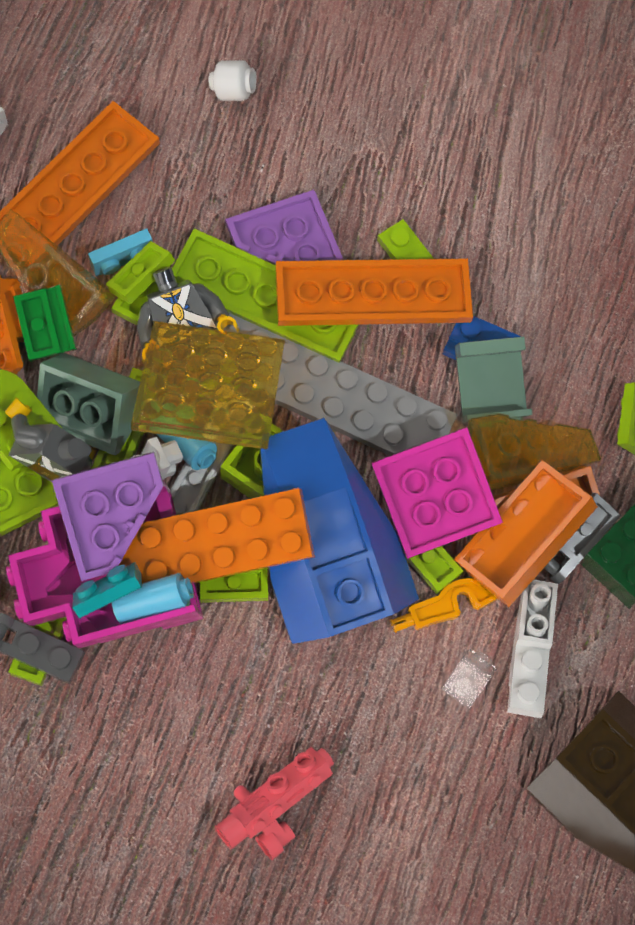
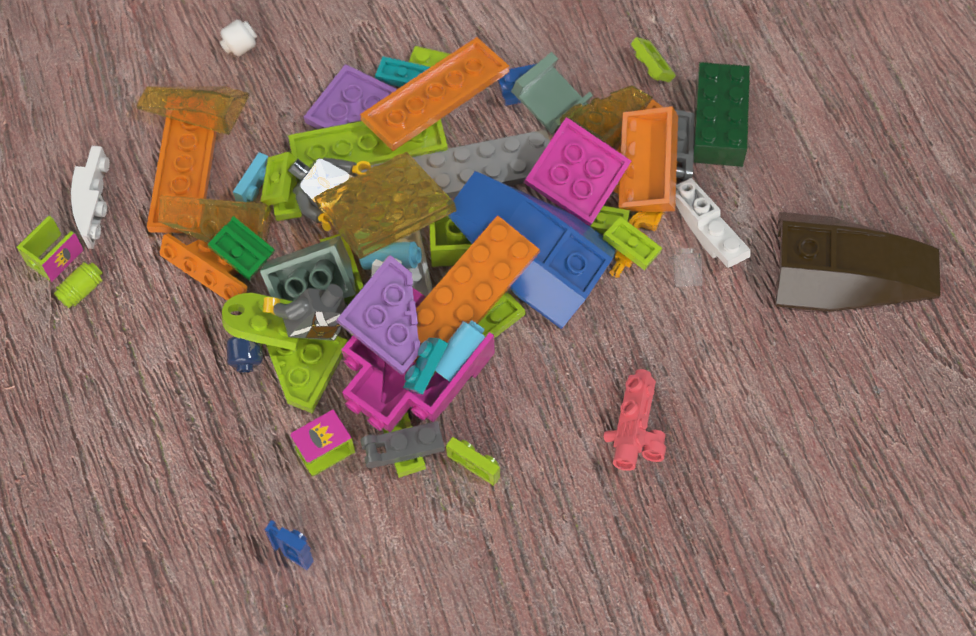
camera: 30 degrees left, 10 degrees down
(95, 729) = (465, 455): none -> lime plate
(134, 132) = (201, 106): none -> clear yellow wedge
(362, 238) = (398, 72): none -> teal plate
(432, 610) = (632, 243): none -> lime plate

